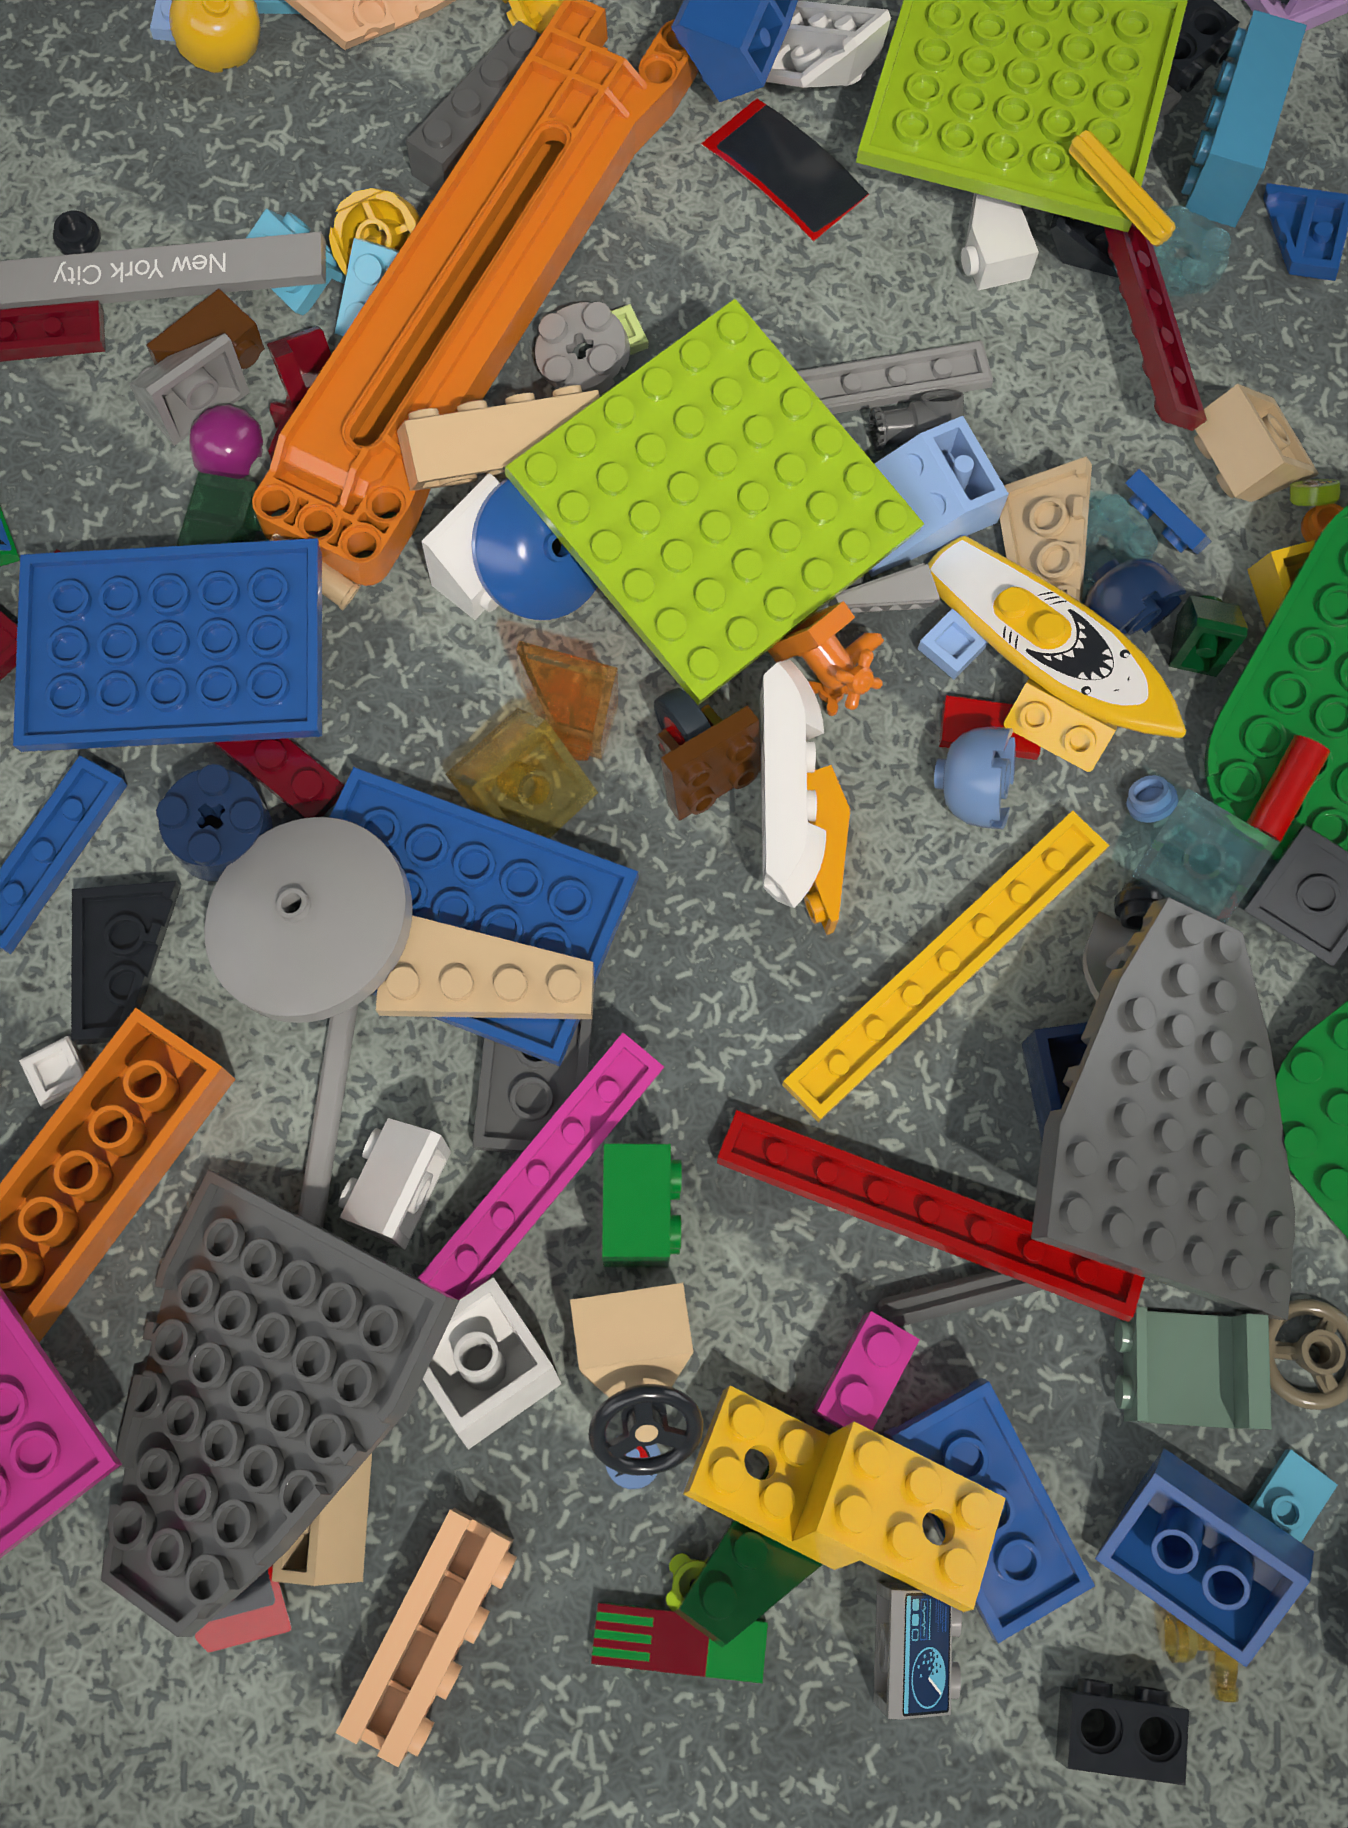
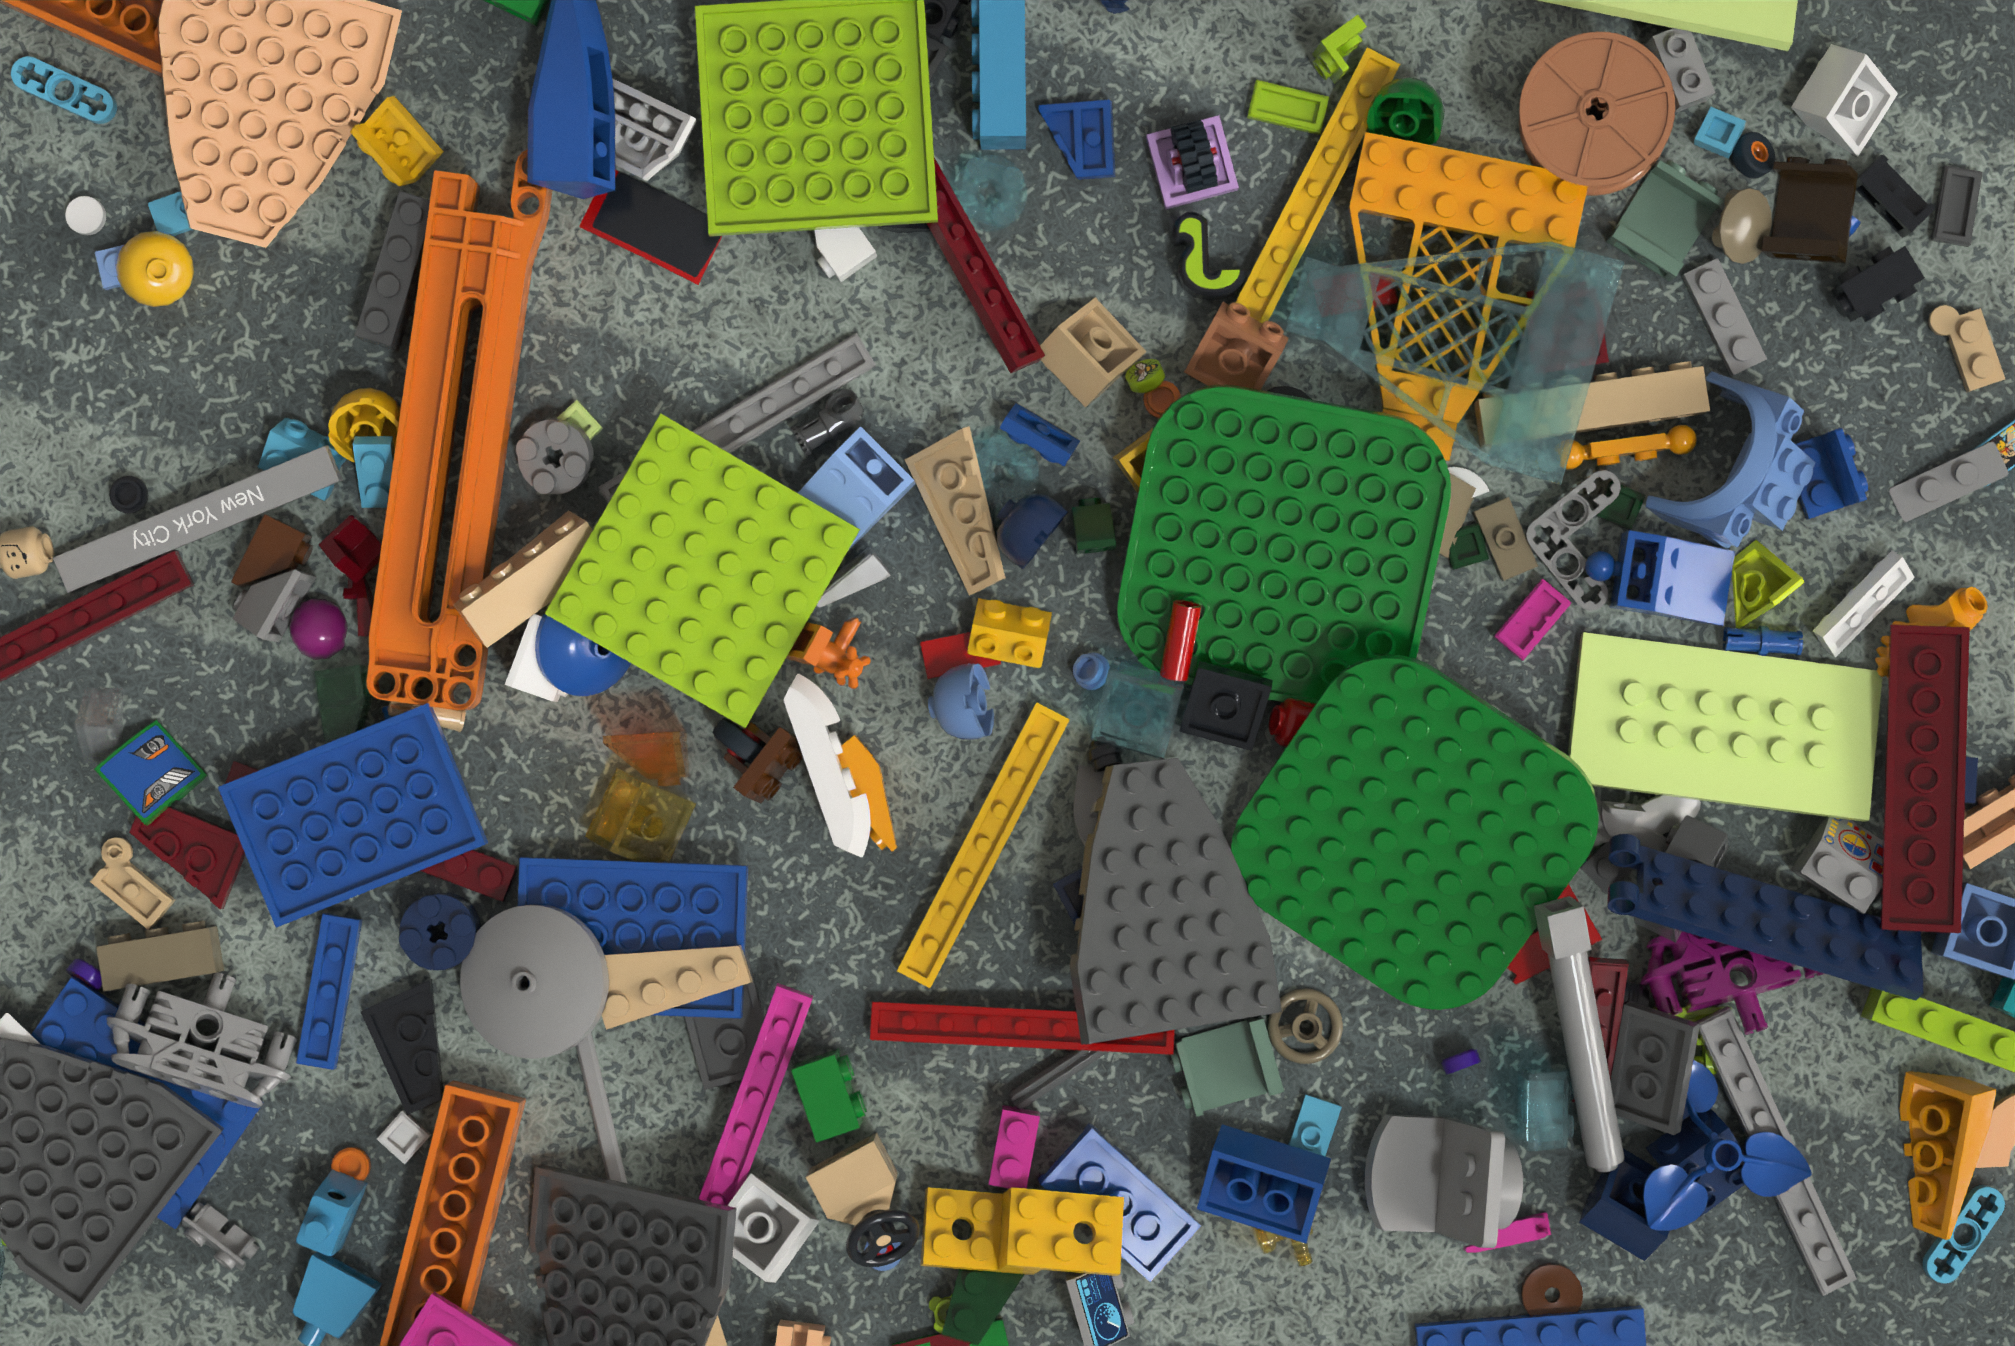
camera: 10 degrees left, 15 degrees up
(395, 1181) = (662, 1133): white slope -> none
(952, 644) = (912, 599): light blue plate -> none
(1055, 639) = (978, 580): piece -> none
(1118, 1746) = (1243, 1318): black brick -> none
(1122, 188) = (920, 200): yellow axle -> none

